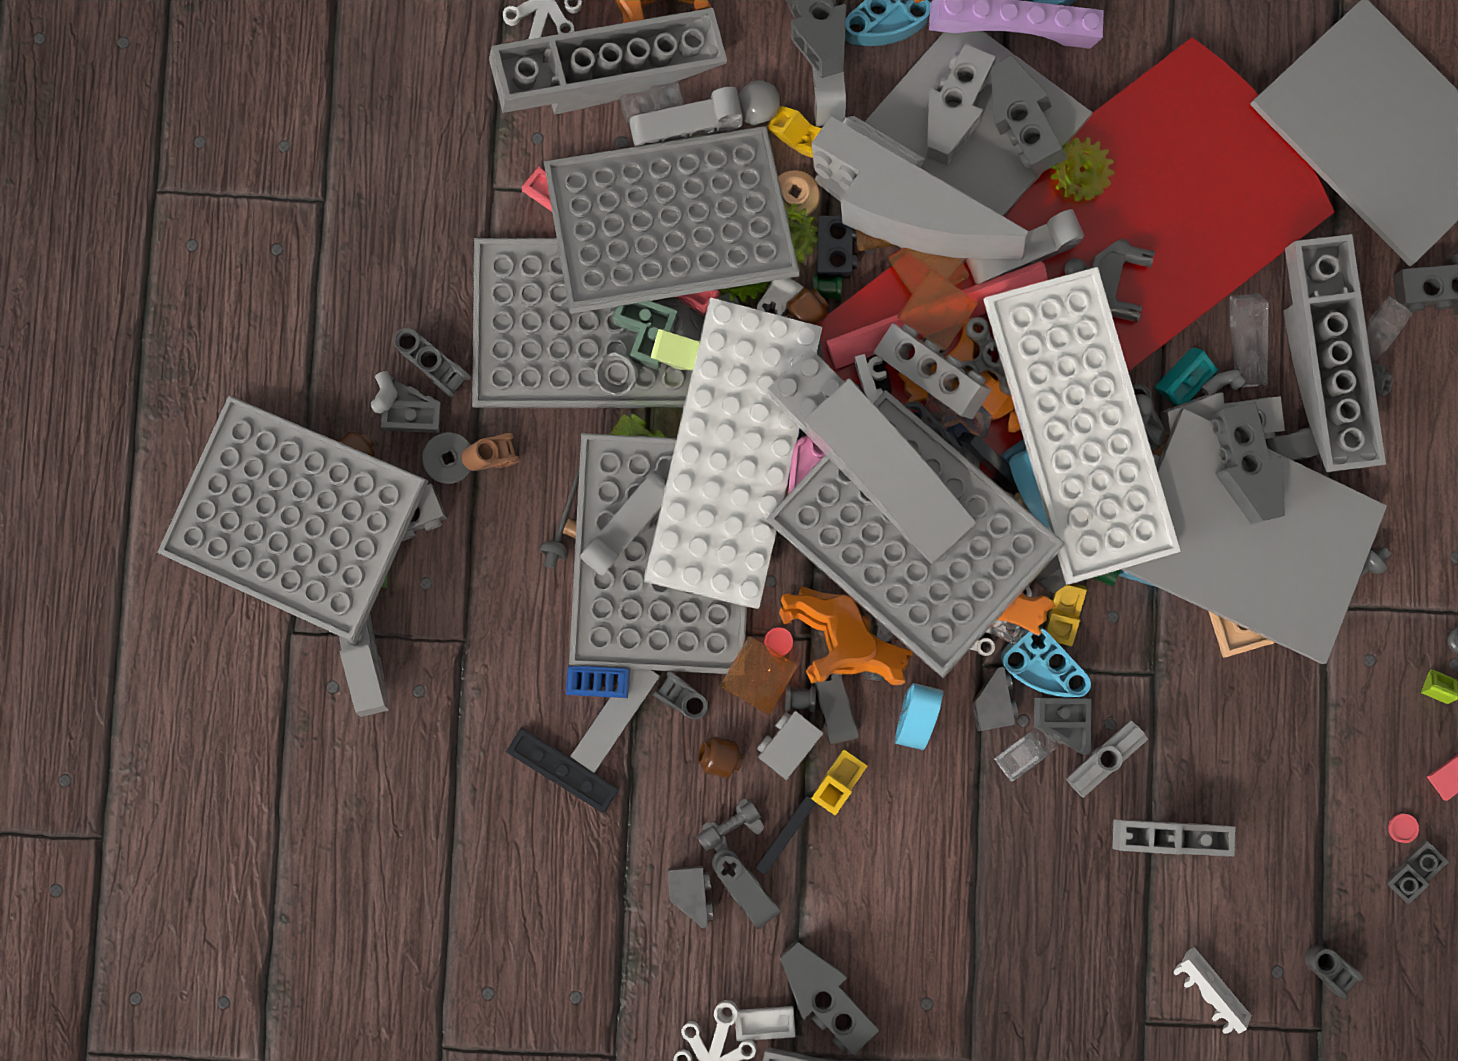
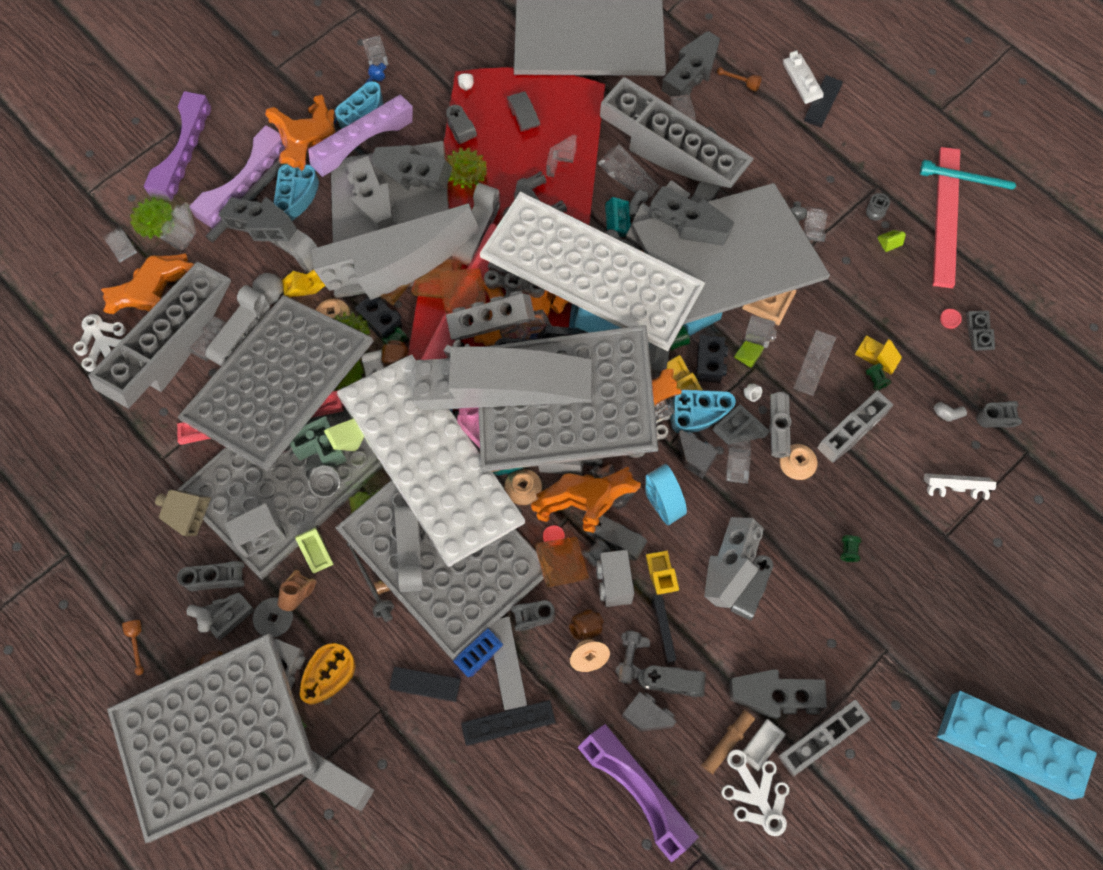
camera: 40 degrees left, 15 degrees down
(314, 340) = (132, 630): none -> dark orange hinge
(454, 574) = (318, 663): none -> light orange piece
(462, 267) = (183, 510): none -> dark tan torso
(507, 359) = (255, 530): none -> light grey brick
(524, 659) = (425, 684): none -> black tile
(545, 431) = (314, 550): none -> yellowish green slope
(606, 1007) = (669, 828): none -> medium lavender arch
(694, 787) = (589, 655): none -> light nougat piece
(736, 990) = (727, 743): none -> medium nougat pin
(787, 570) = (518, 494): none -> light nougat piece
(891, 848) = (734, 565): none -> light grey brick
(906, 882) = (749, 599): none -> dark grey piece
(1039, 942) = (850, 548): none -> dark green bush
(1073, 808) = (799, 470): none -> light nougat piece
(1109, 618) = (711, 359): none -> black brick
(1117, 698) = (753, 392): none -> white hinge
(1128, 115) = (460, 124): none -> dark grey piece
(1159, 655) = (749, 353): none -> lime slope
(1187, 64) = (465, 81): none -> white hinge
(1193, 647) = (760, 331): none -> clear brick
(1203, 251) = (563, 152): none -> clear slope
(1212, 161) = (524, 111): none -> dark grey slope
(1213, 732) = (814, 362): none -> clear slope
(1257, 811) = (878, 377): none -> dark green bush
(1285, 917) = (948, 413): none -> light grey arm
(1287, 793) = (877, 353): none -> yellow slope
(1380, 591) = (815, 224): none -> clear slope

